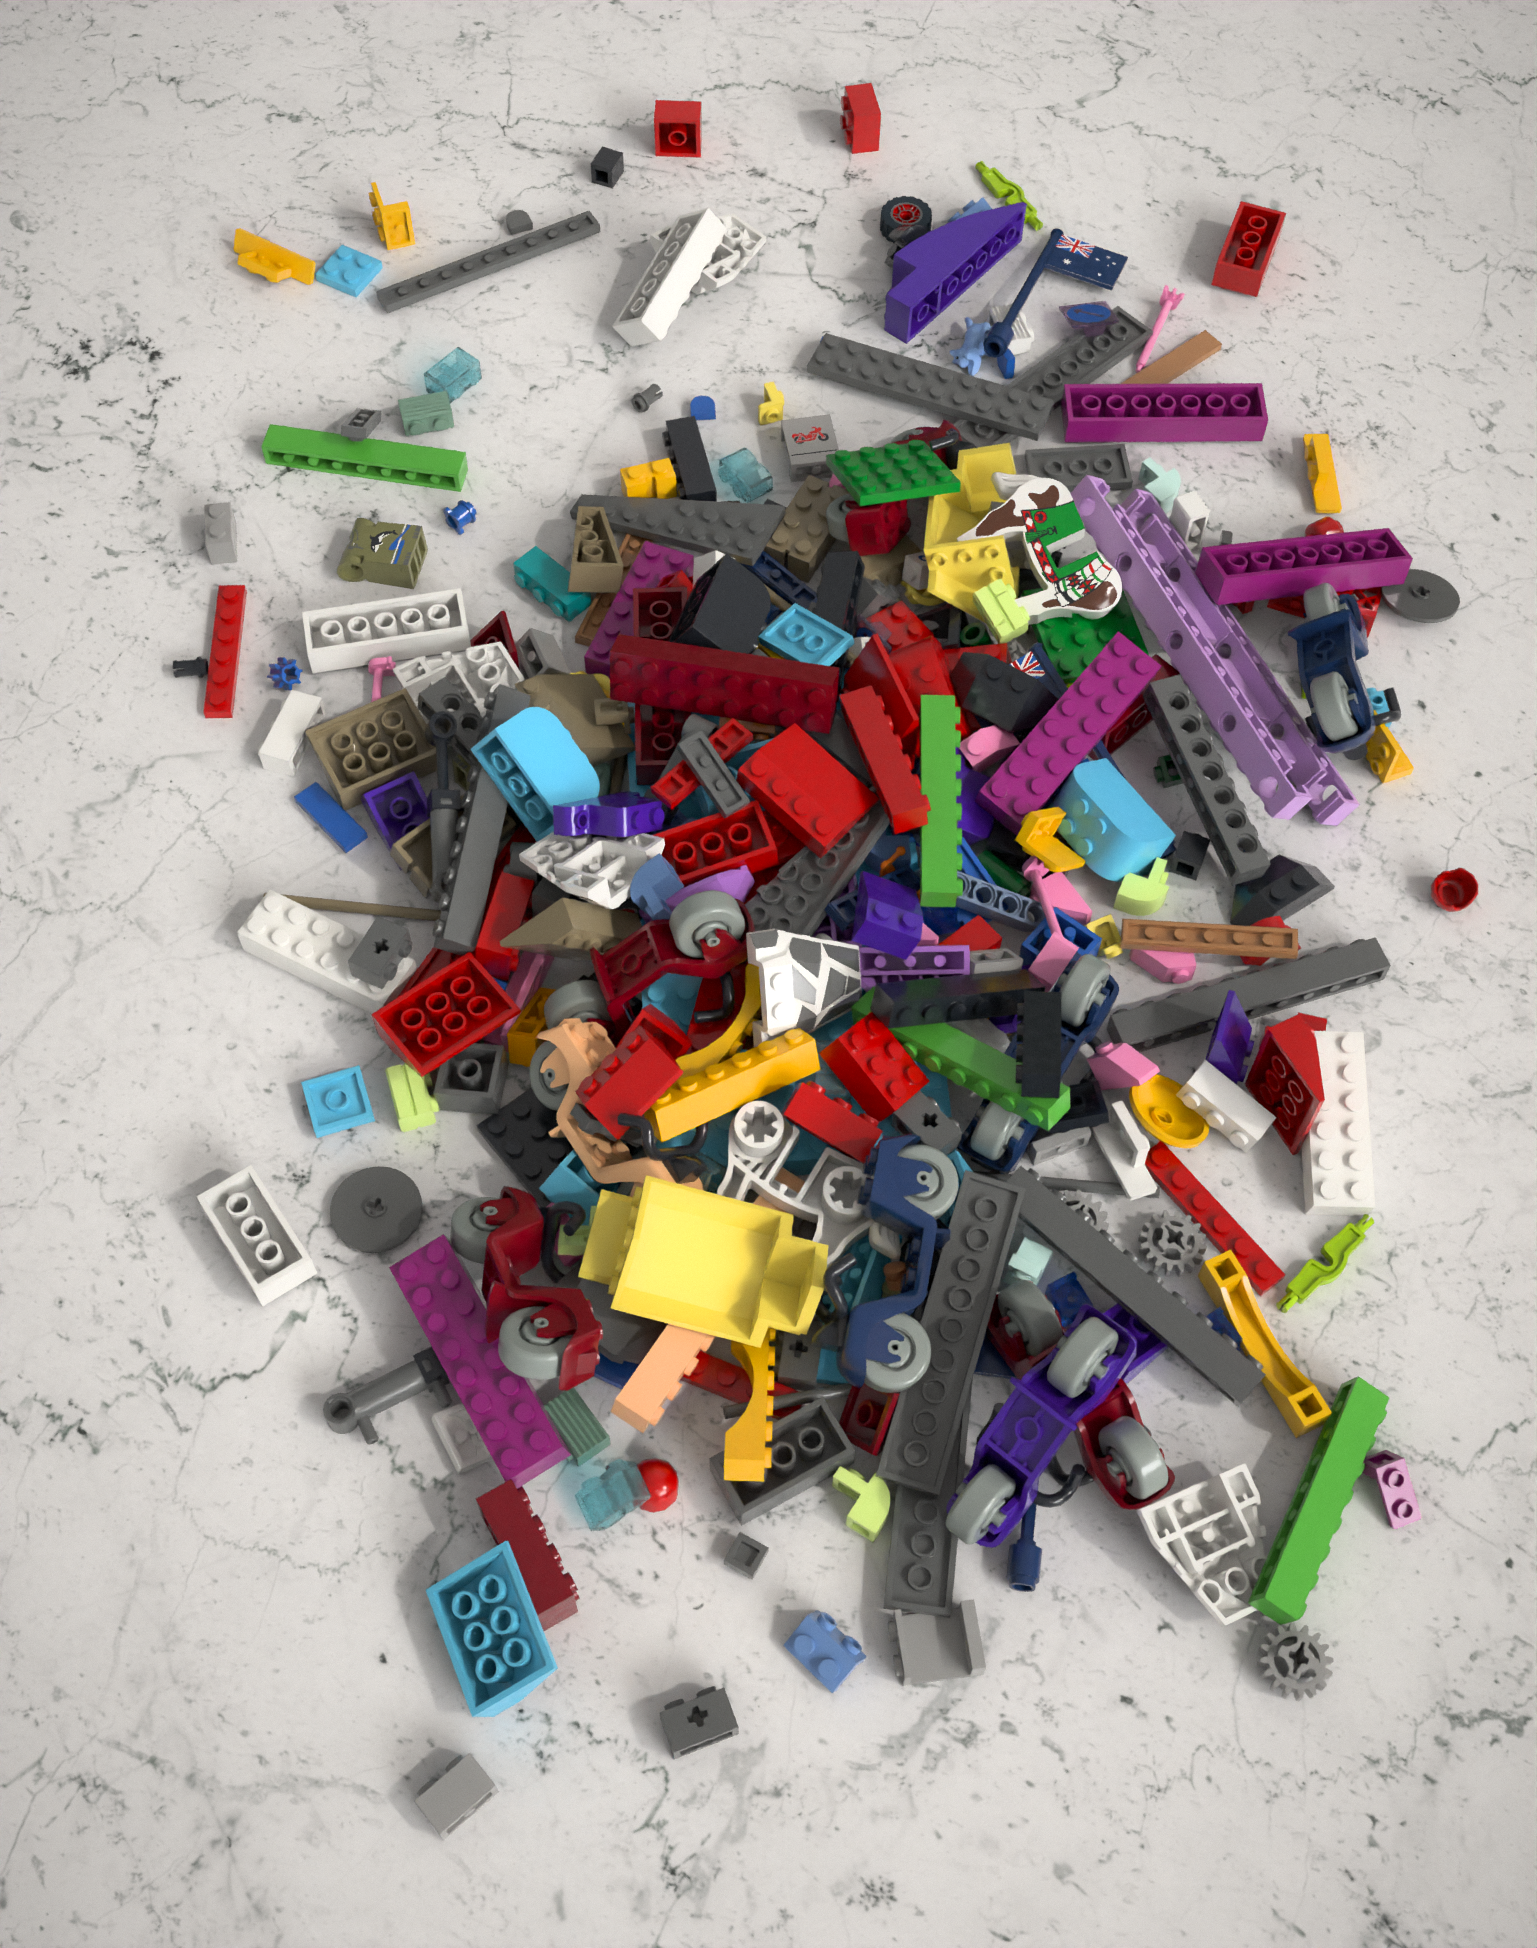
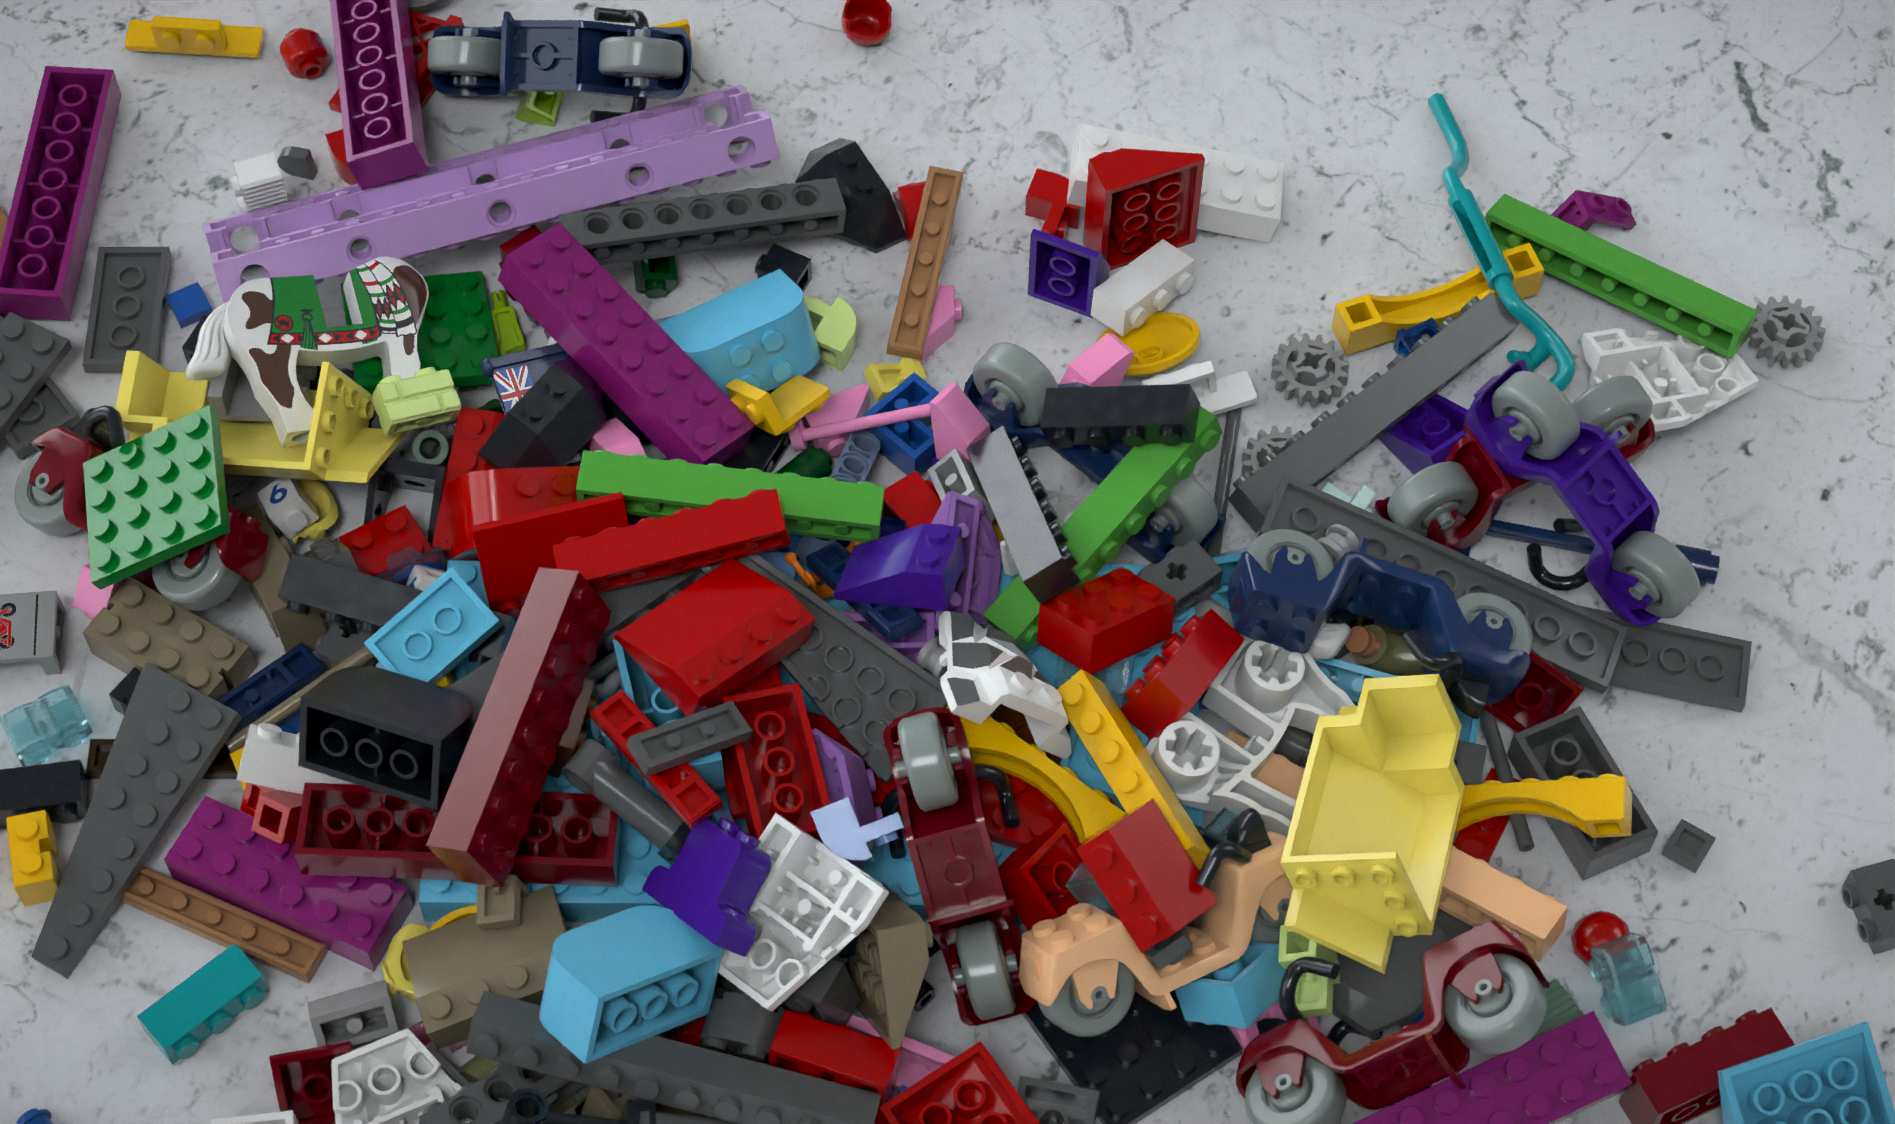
camera: 85 degrees left, 0 degrees up
(523, 1033) = (955, 1037): light orange slope -> none
(595, 556) = (173, 930): dark tan wedge -> none
(825, 1649) = (1793, 772): medium blue bracket -> none
(871, 1499) = (1629, 709): yellowish green brick -> none
(937, 1646) = (1781, 659): light grey panel -> none
(957, 1224) = (1339, 541): none -> light grey wheel
(1060, 1290) = (1380, 476): clear blue brick -> none
(1160, 483) = (185, 213): light aqua brick -> none
(1215, 1221) = (1266, 333): red plate -> none
(1258, 992) = (987, 229): dark grey brick -> none
(1309, 1373) = (1490, 257): none -> teal piece
(1316, 1274) = (1346, 243): lime piece -> none

